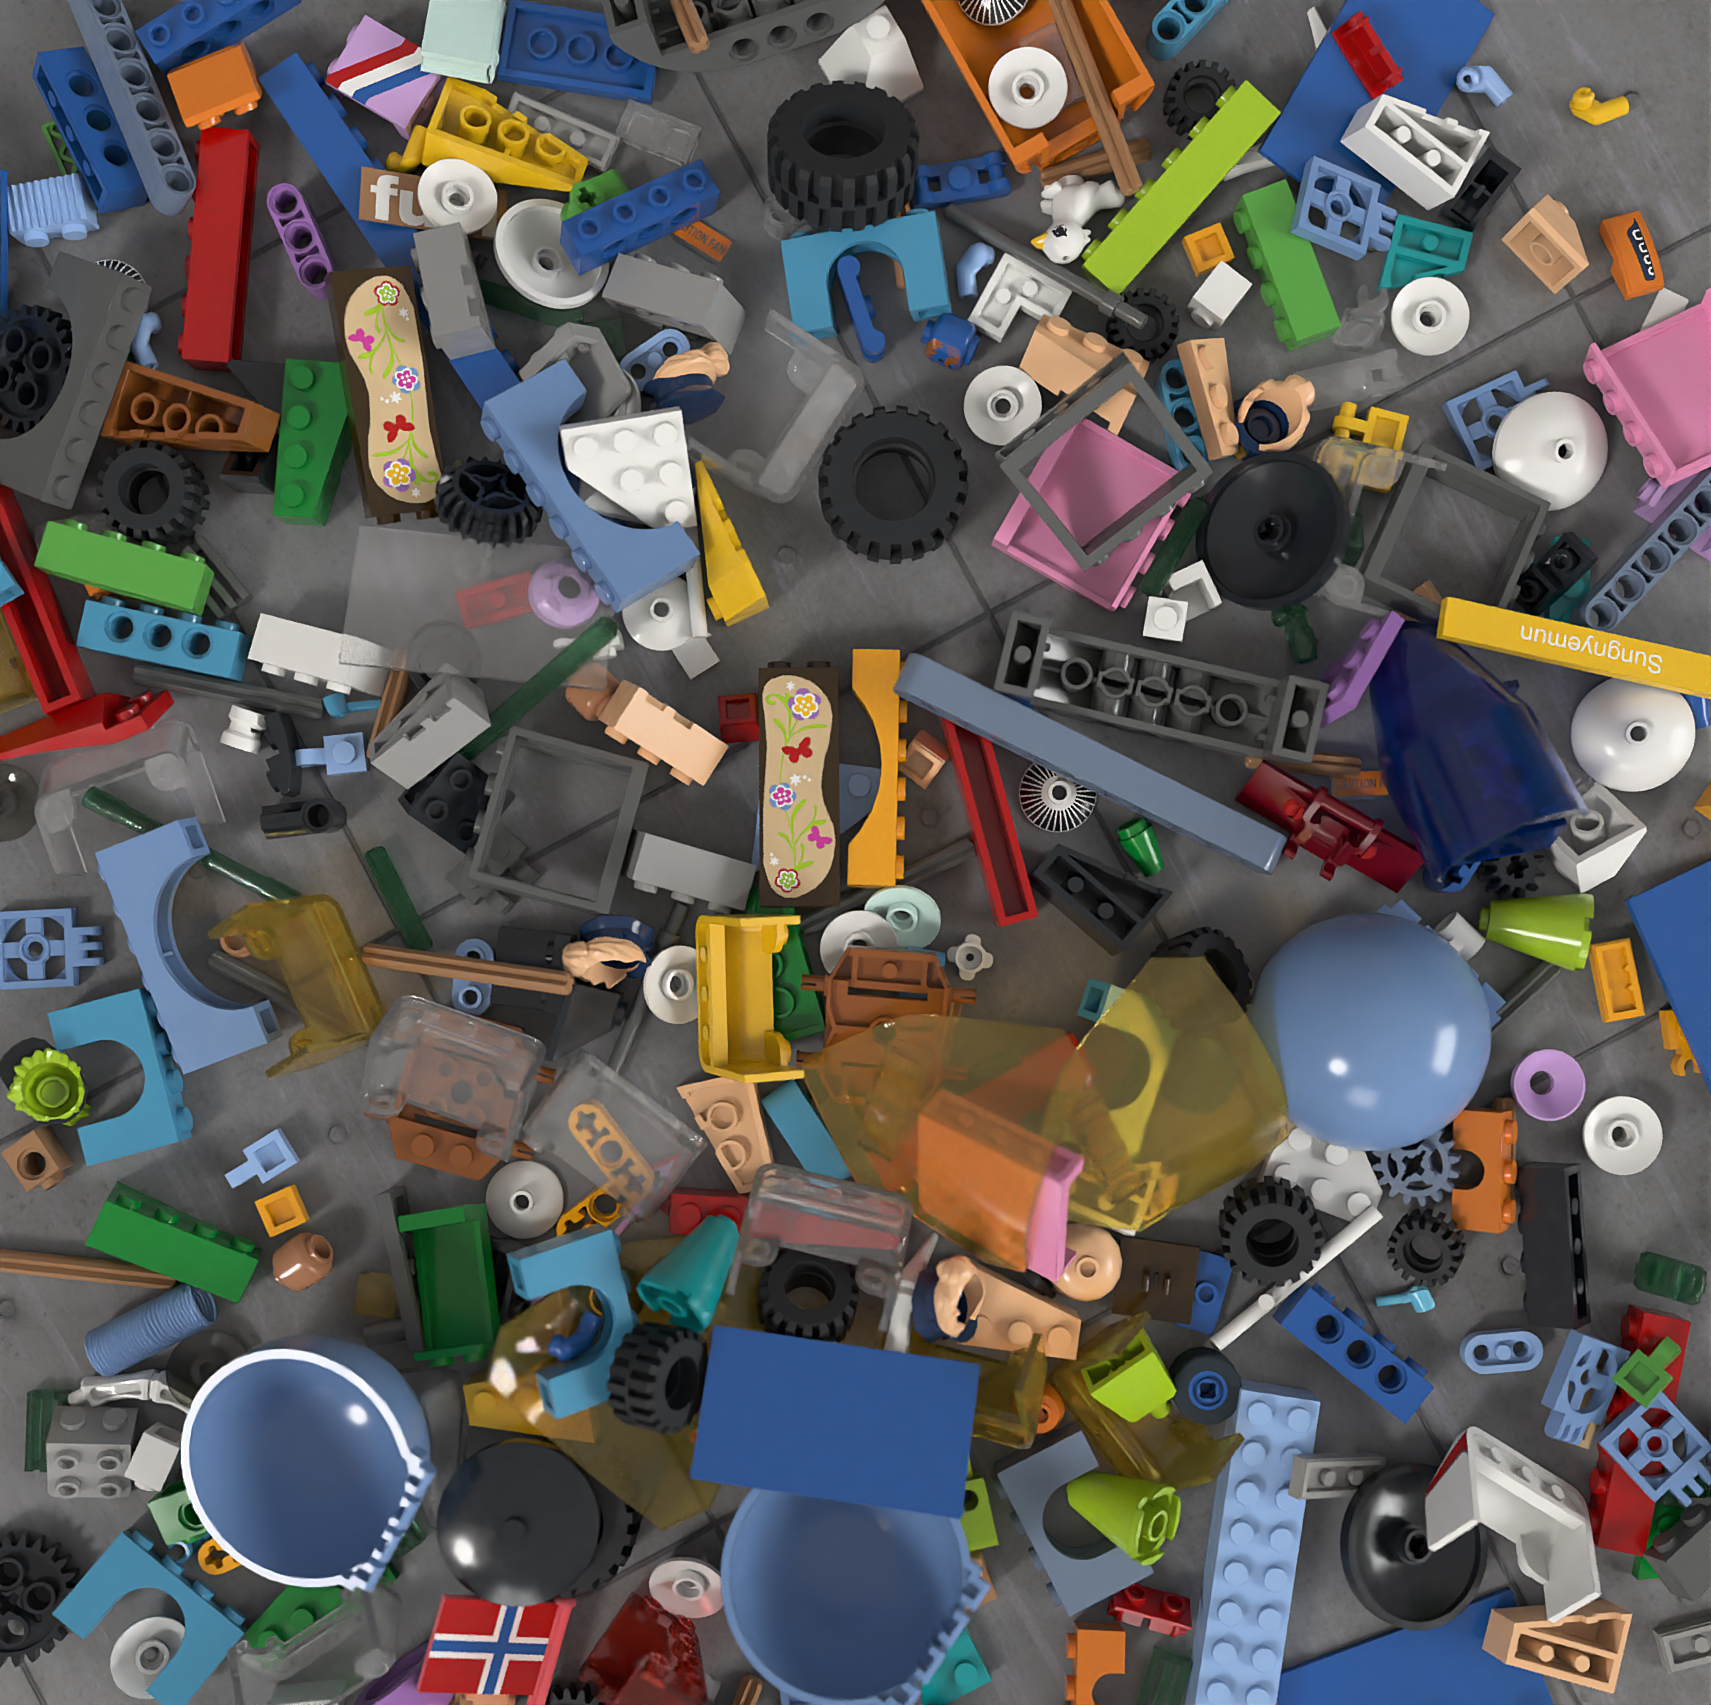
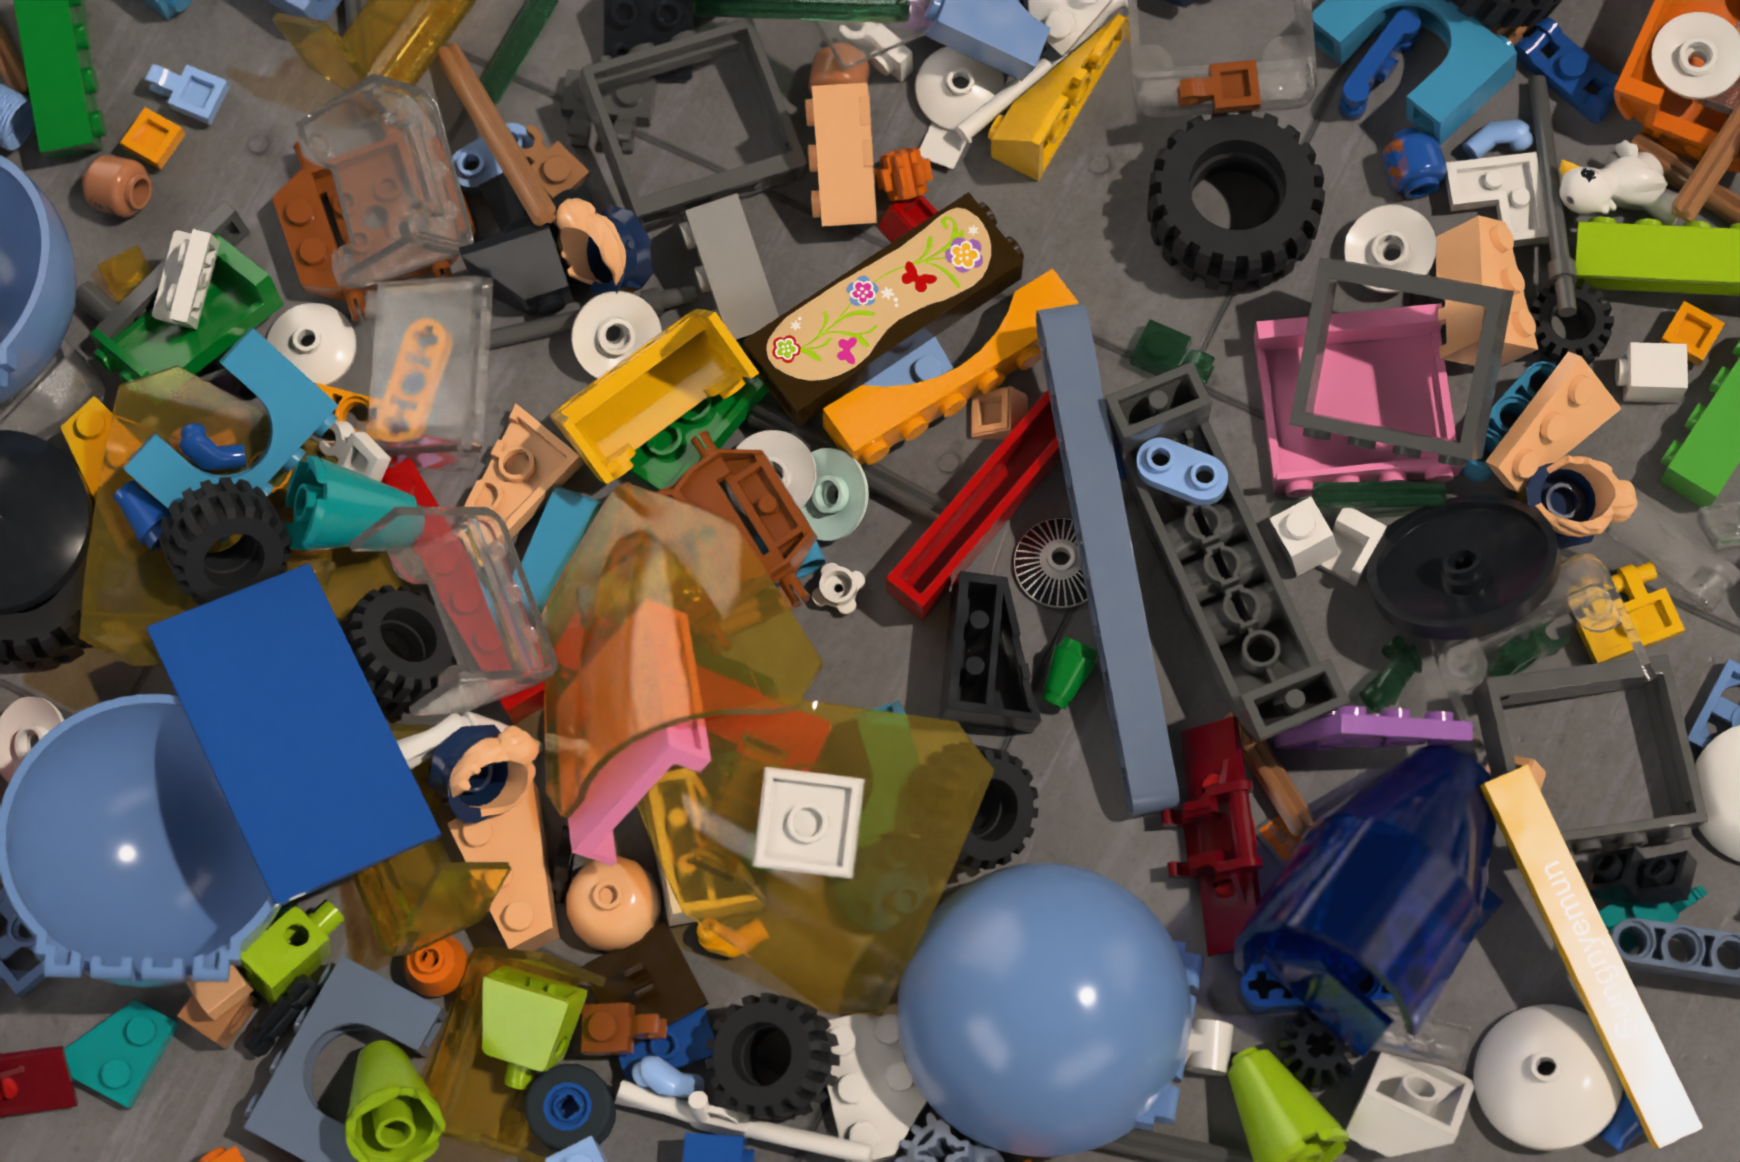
camera: 60 degrees right, 15 degrees down
(421, 1265) = (186, 278): none -> white bracket
(520, 942) = (554, 166): none -> medium nougat plate
(593, 1419) = (142, 513): none -> blue cone
(651, 1232) = (356, 451): none -> white plate
(702, 699) = (903, 173): none -> orange gear
(819, 431) = (1229, 87): none -> dark orange plate
(961, 613) = (1166, 349): none -> clear green plate
(1007, 1548) = (280, 1015): none -> black axle
(1073, 671) = (1179, 474): none -> light blue plate
(1161, 1113) = (809, 822): none -> white tile
(1175, 1323) = (614, 1027): none -> dark orange plate
(1232, 1310) = (665, 1078): none -> light blue arm

